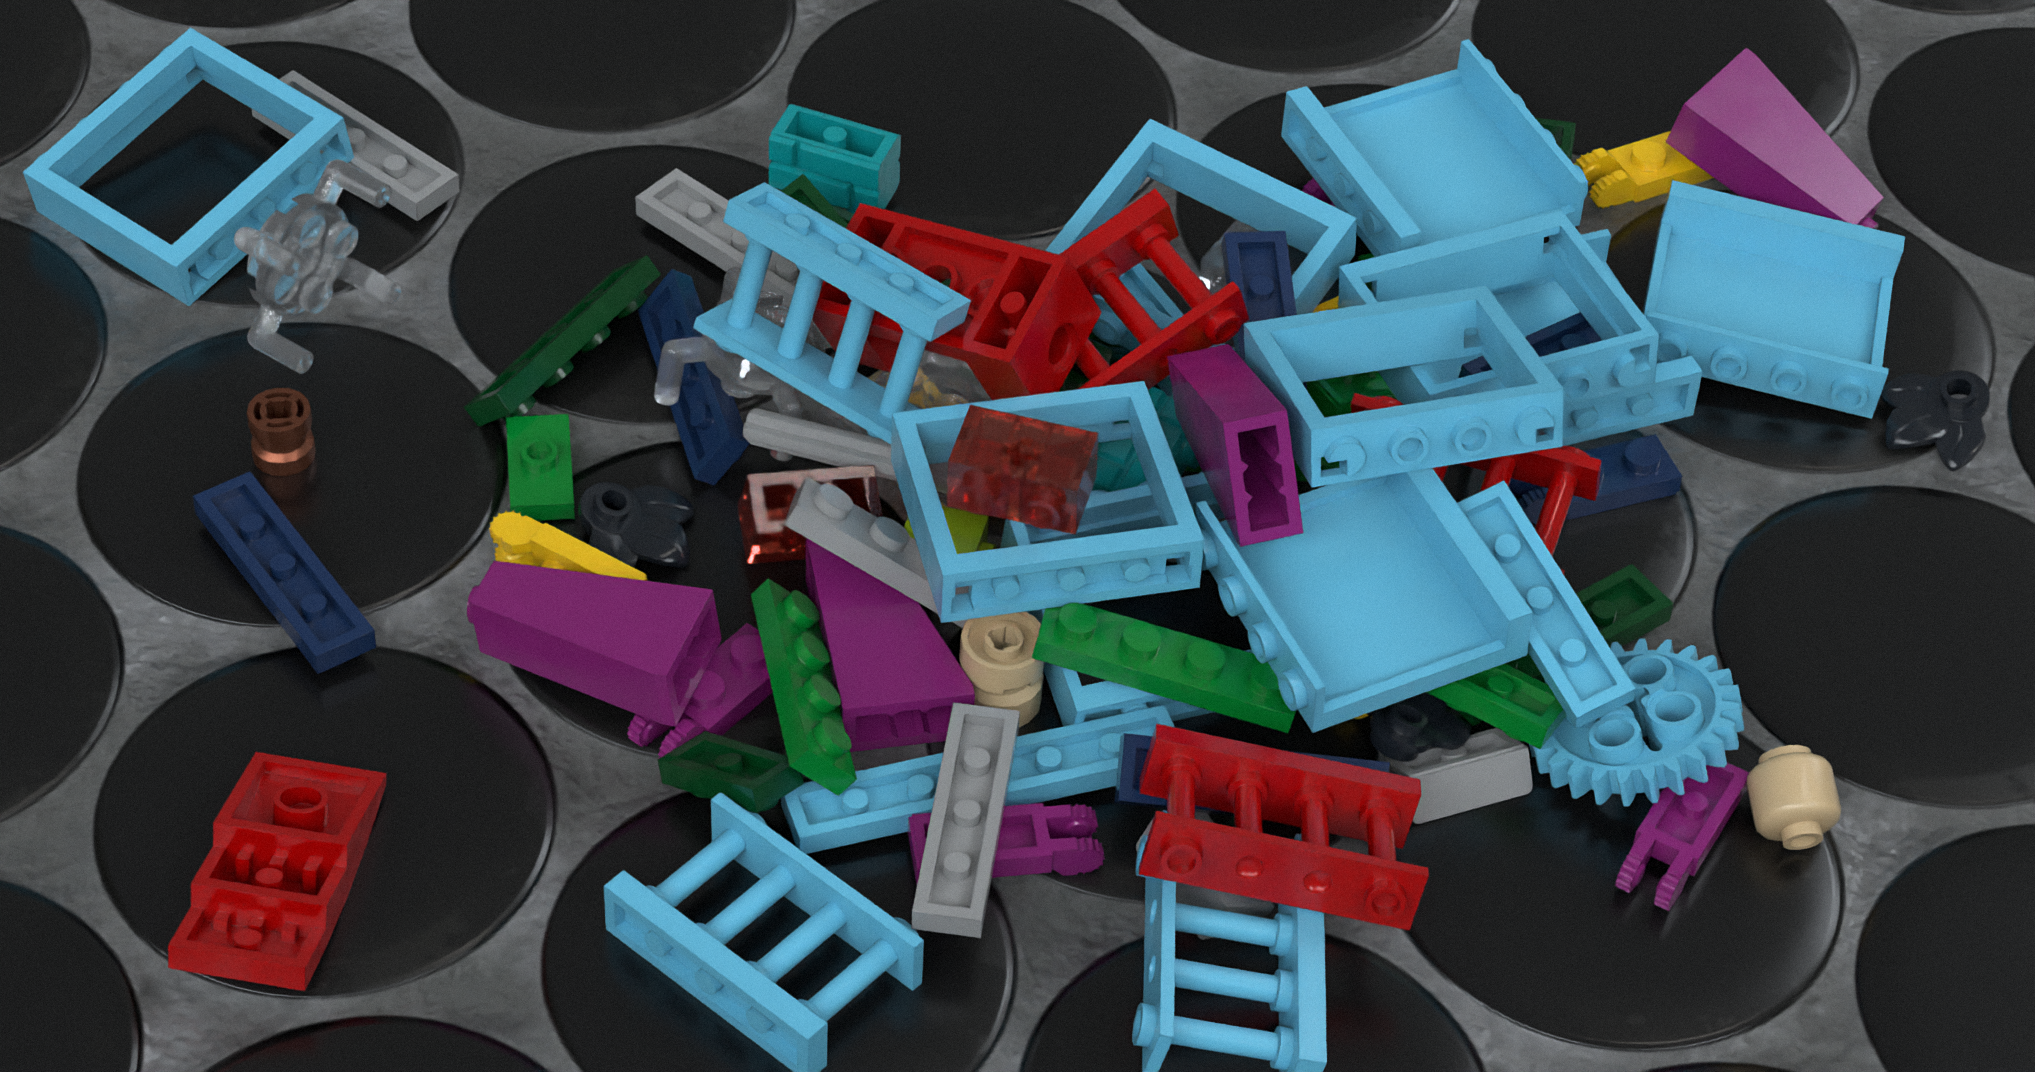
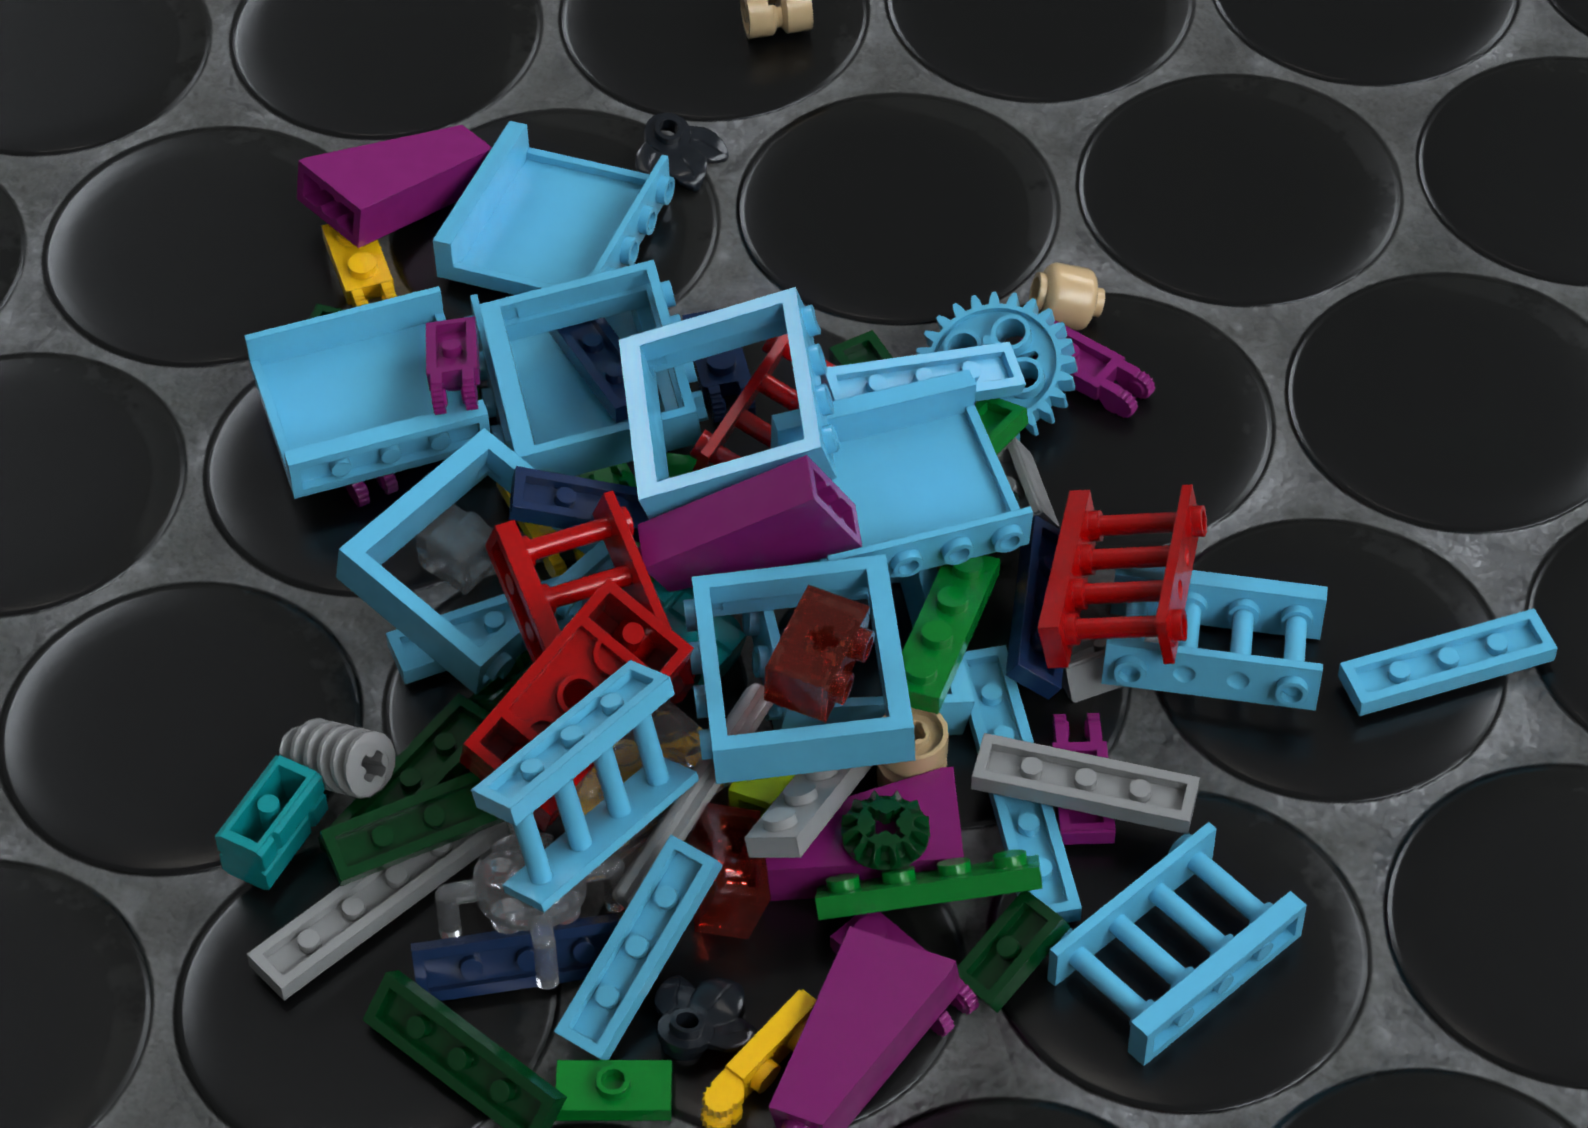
camera: 80 degrees left, 5 degrees up
(690, 439) = (638, 948): none -> medium azure plate
(866, 646) = (885, 850): none -> dark green gear
(920, 186) = (347, 757): none -> light grey piece
(1459, 198) = (453, 361): none -> magenta hinge

